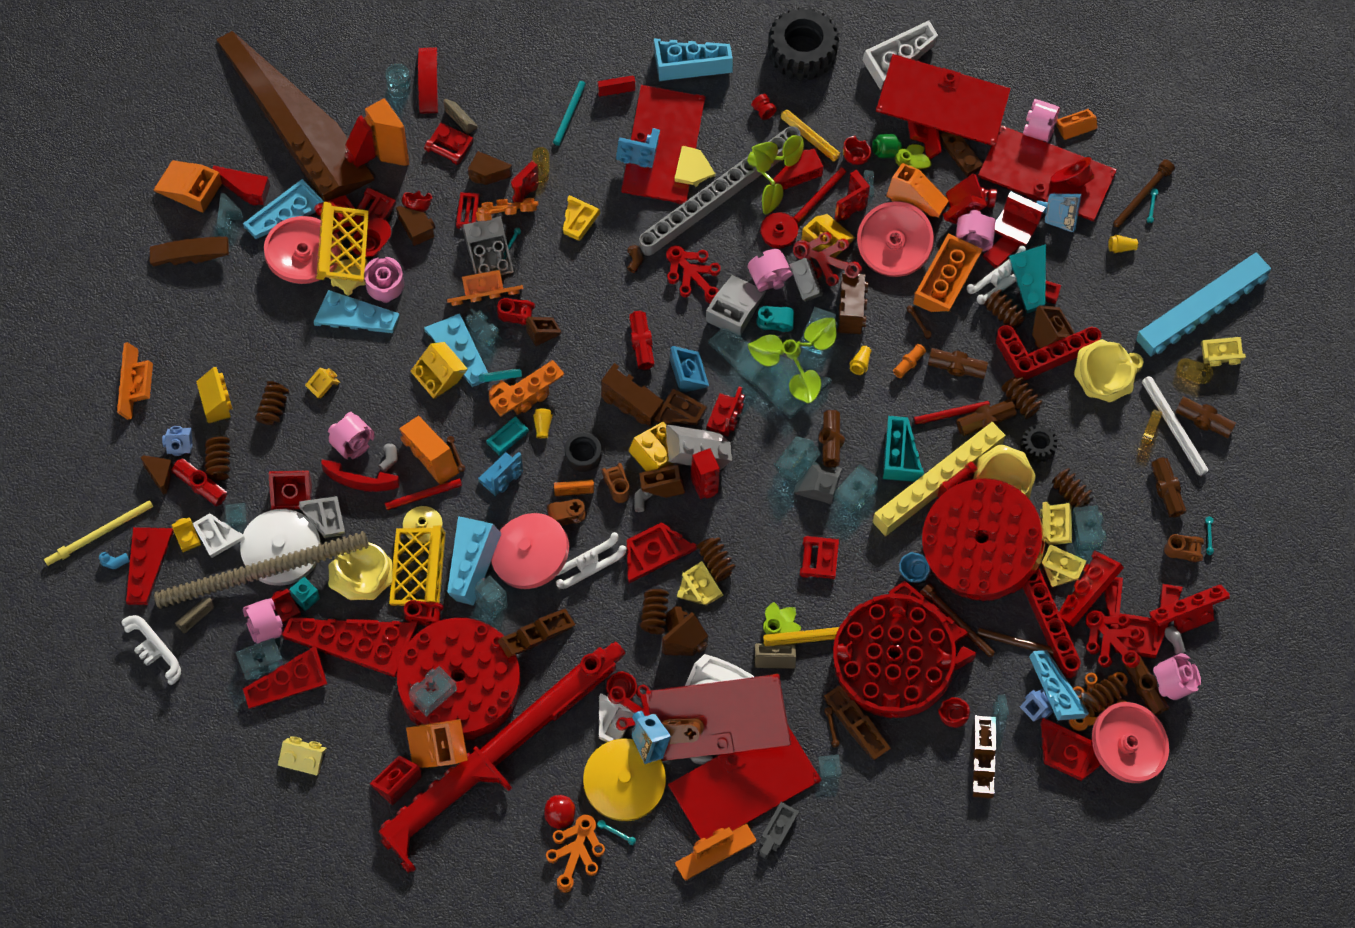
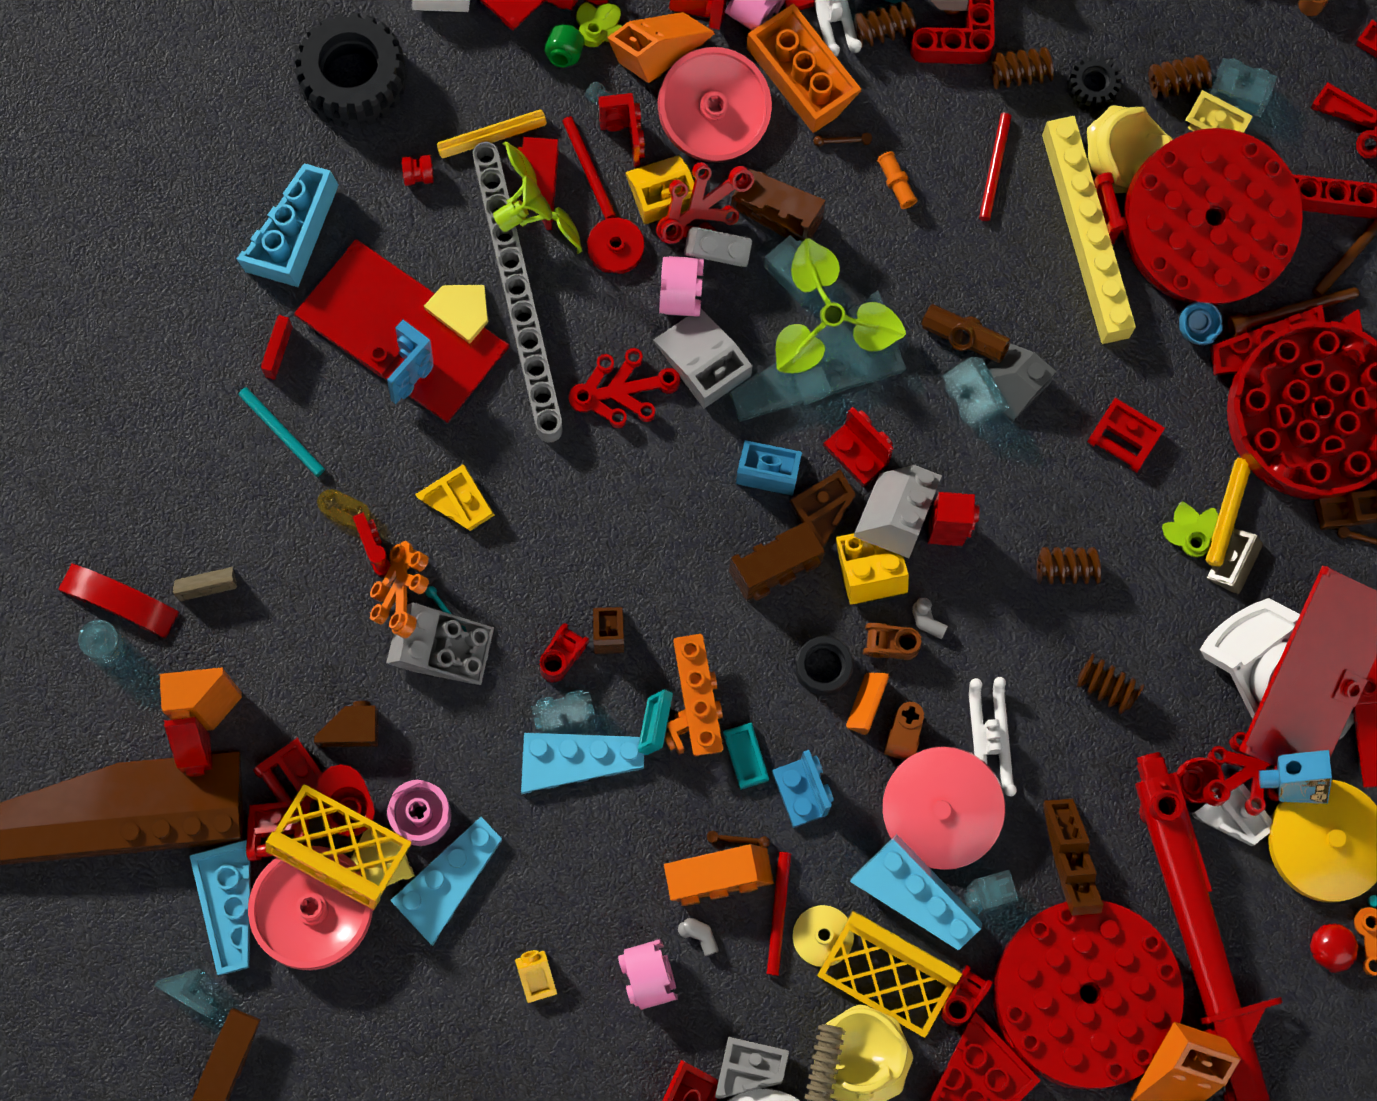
camera: 65 degrees left, 10 degrees up
(189, 184) = (106, 1027): orange slope -> none
(247, 186) = (157, 941): red slope -> none
(271, 402) = (536, 1063): reddish brown piece -> none
(382, 483) = (687, 1020): red slope -> none
(417, 201) = (315, 709): red hair -> none
(430, 700) = (1113, 1023): clear light blue brick -> none
(438, 369) = (599, 802): yellow slope -> none
(451, 139) = (237, 612): red plate -> none
(461, 201) = (379, 667): red tile -> none
(483, 285) = (500, 681): orange bracket -> none
(488, 169) = (315, 585): reddish brown slope -> none
(542, 422) = (751, 698): yellow cone -> none
(637, 258) = (553, 448): reddish brown arm -> none
(641, 340) = (692, 505): red piece -> none
(654, 550) = (1015, 641): red wing -> none
(663, 481) = (926, 581): reddish brown slope -> none
(674, 617) = (1132, 662): reddish brown tile -> none
(680, 730) = (1316, 732): dark orange piece -> none
(685, 638) = (1168, 662): reddish brown slope -> none
(699, 586) = (1092, 608): light yellow slope -> none
(777, 318) = (752, 313): teal piece -> none
(856, 151) = (552, 87): red hair -> none
(860, 361) = (867, 240): yellow cone -> none
(860, 480) = (1052, 322): clear light blue brick -> none
(901, 455) = (1027, 257): teal wedge -> none
(957, 363) = (931, 122): reddish brown piece -> none
(985, 415) = (1026, 128): reddish brown piece -> none
(1062, 566) = (1284, 140): light yellow slope -> none
(1095, 580) = (1321, 119): red wing -> none

